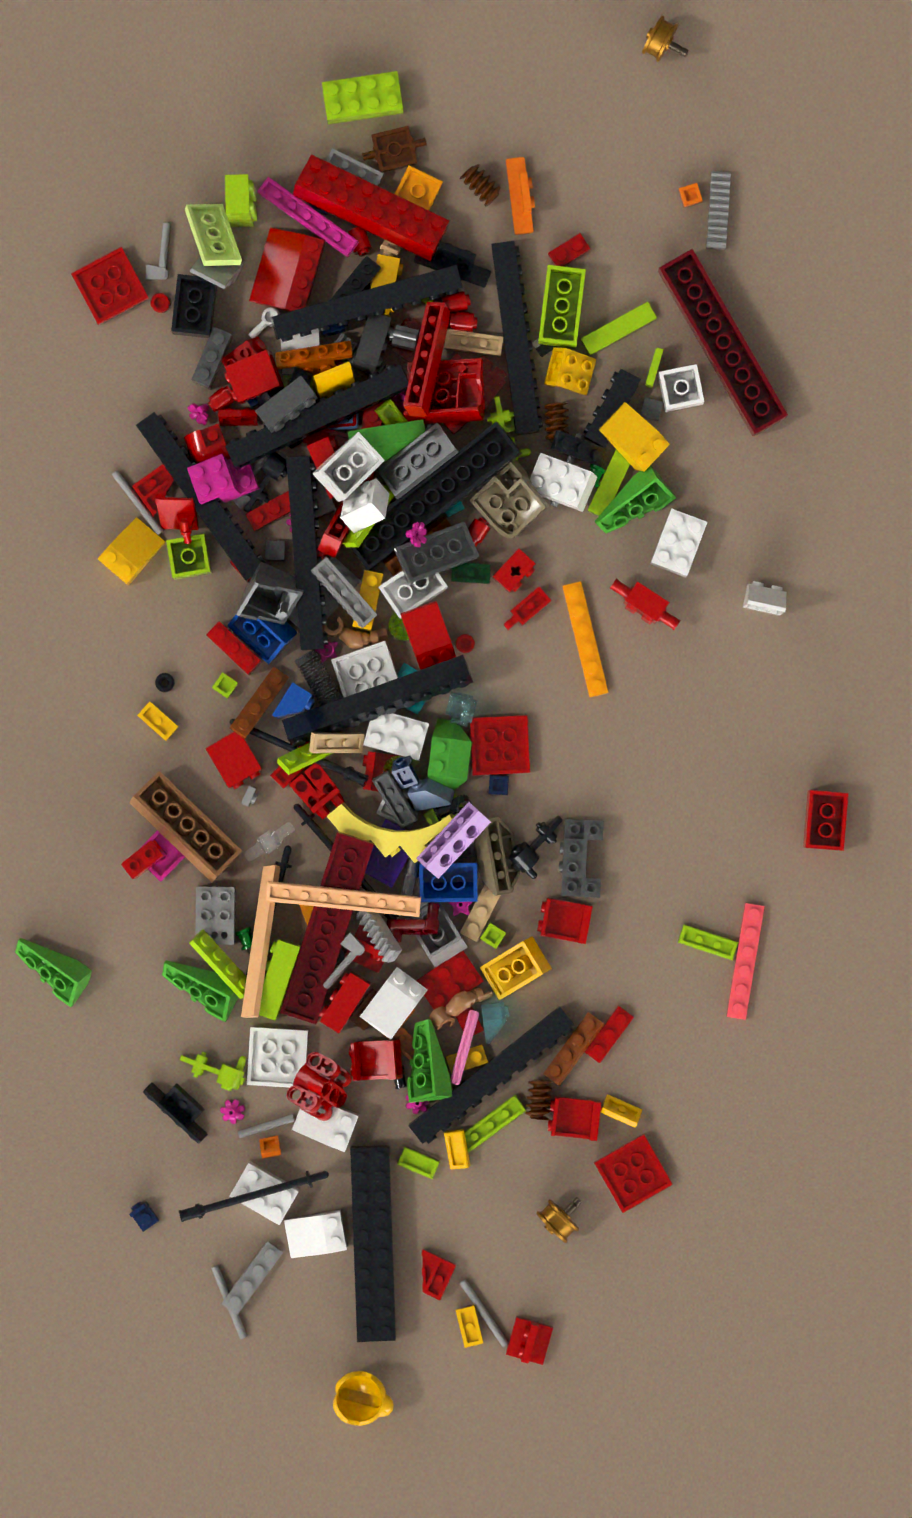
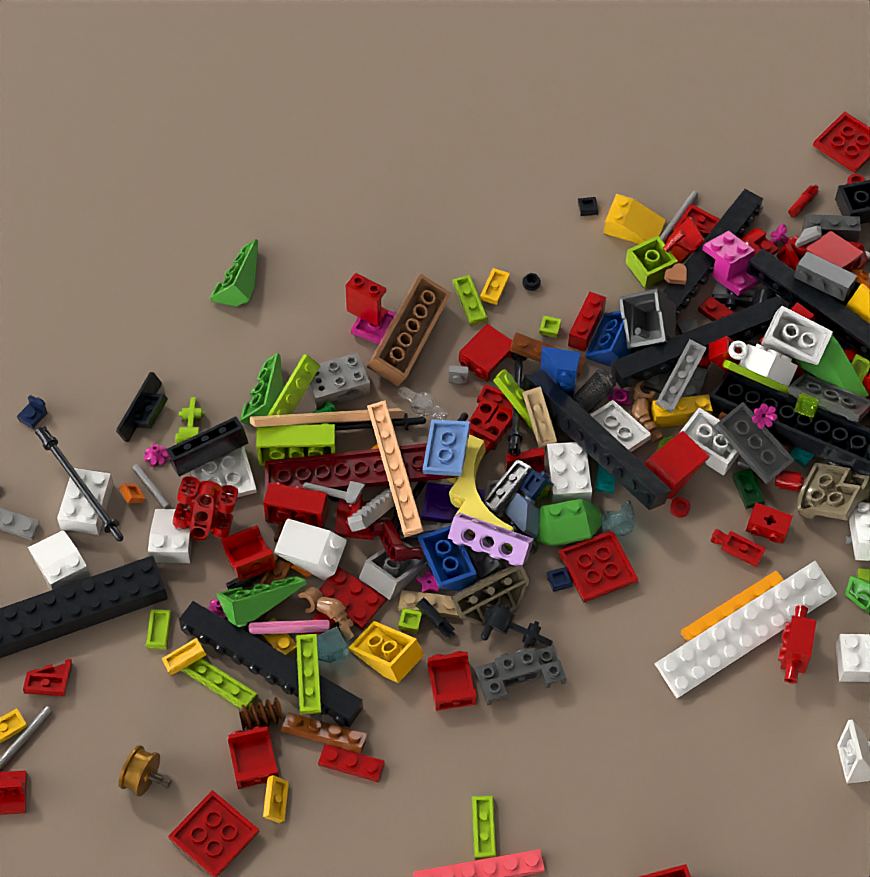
camera: 60 degrees right, 30 degrees down
(91, 588) = (588, 206): none -> black tile
(163, 751) = (469, 300): none -> lime tile
(164, 366) = (805, 198): none -> red piece
(220, 389) = (809, 235): none -> light grey piece
(221, 542) = (676, 275): none -> nougat tile
(253, 1064) = (207, 446): none -> black brick
(345, 845) = (446, 447): none -> medium blue plate
(349, 529) = (742, 346): none -> white plate
(422, 490) = (806, 405): none -> clear neon green plate
(501, 912) = (436, 618): none -> black piece
(521, 1047) = (308, 674): none -> lime plate
(610, 639) = (744, 629): none -> white plate

